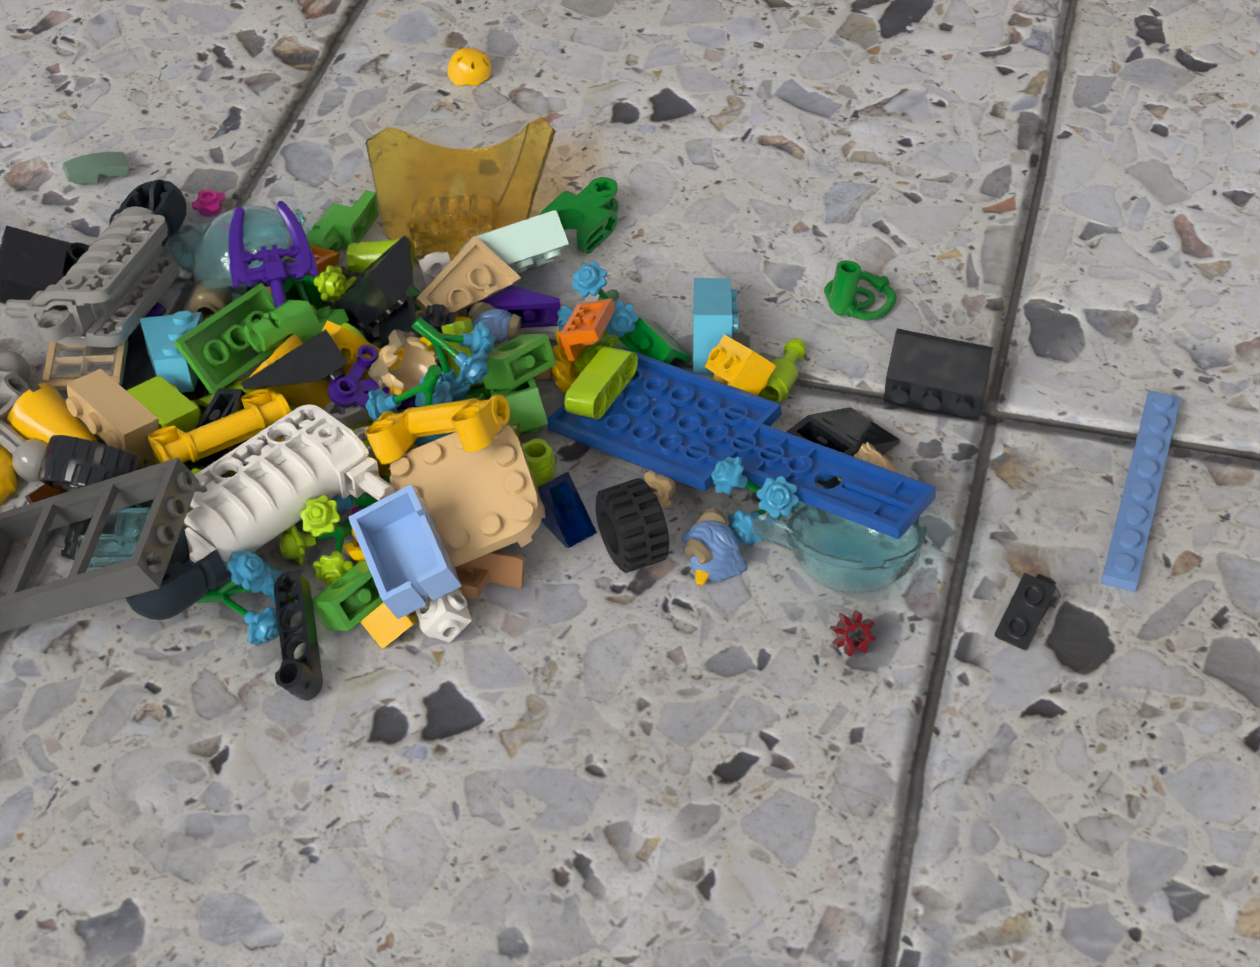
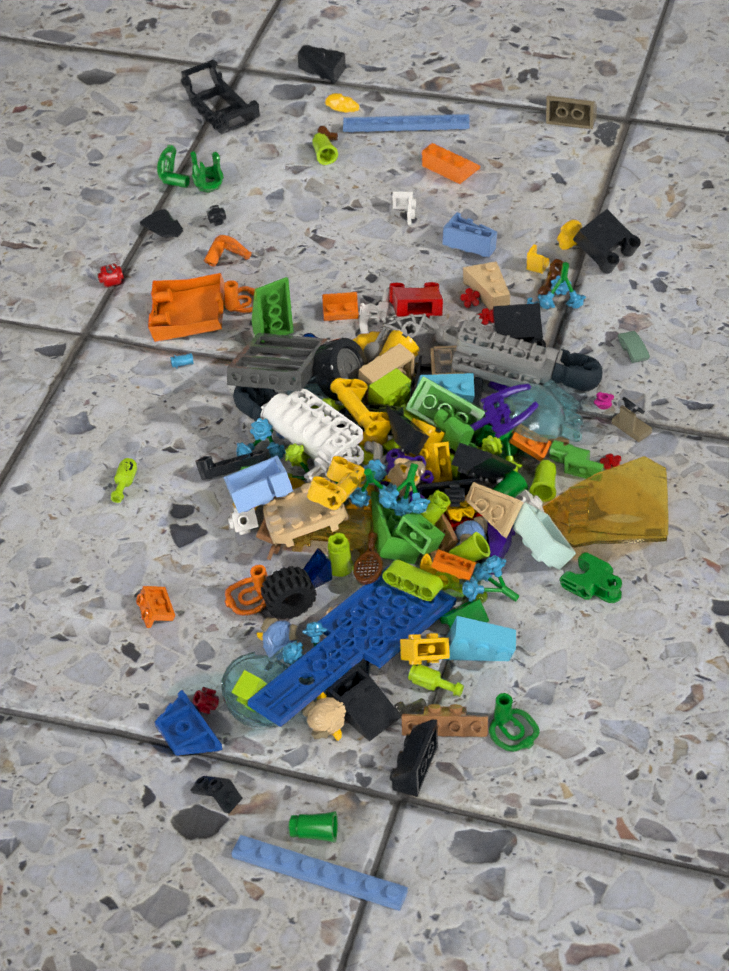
camera: 95 degrees right, 0 degrees up
(272, 171) = (629, 423): none -> dark tan piece
(301, 814) = (123, 478): none -> lime piece
(337, 197) = (610, 460): none -> red plant
(541, 315) = (472, 548): none -> lime plant
(546, 428) = (368, 554): none -> reddish brown piece
(599, 579) = (258, 576): none -> orange piece
(640, 732) = (155, 605): none -> orange bracket
(835, 393) = (410, 708): none -> clear smoke arm
(853, 359) = (451, 721): none -> medium nougat bracket
(863, 539) = (247, 687): none -> lime brick
(905, 662) = (186, 729): none -> blue wing
(1074, 483) = (314, 826): none -> green plant

